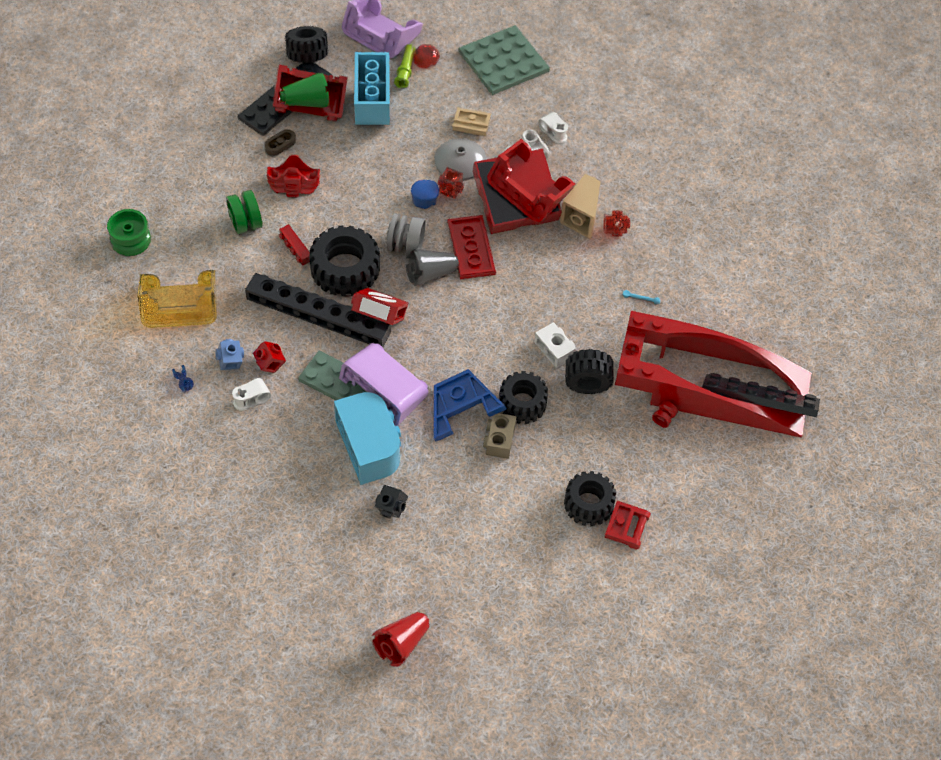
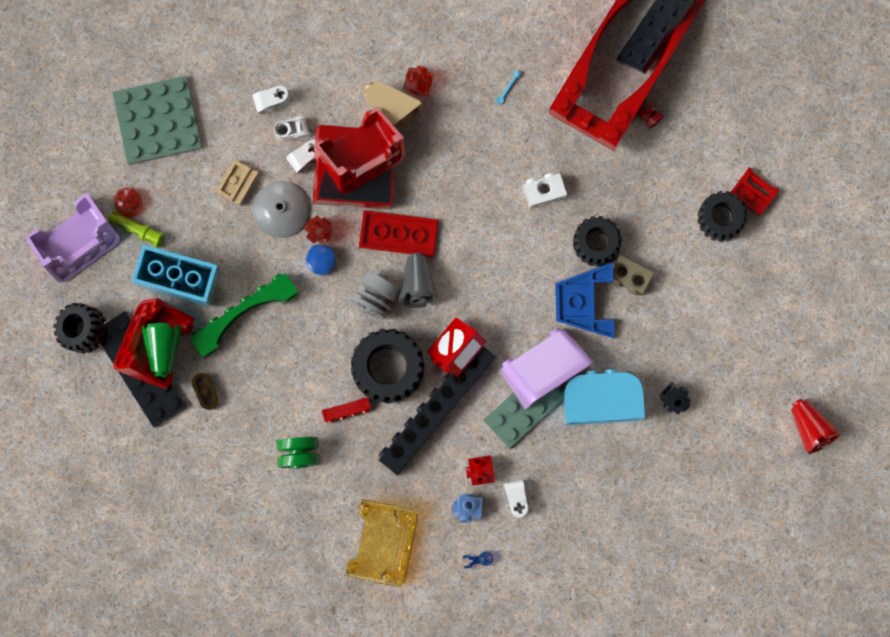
camera: 65 degrees left, 25 degrees up
(129, 232) = (297, 576): green wheel -> none
(293, 177) = (270, 380): red piece -> none
(328, 133) = (208, 339): none -> green arch
(589, 371) = (593, 170): black tyre -> none

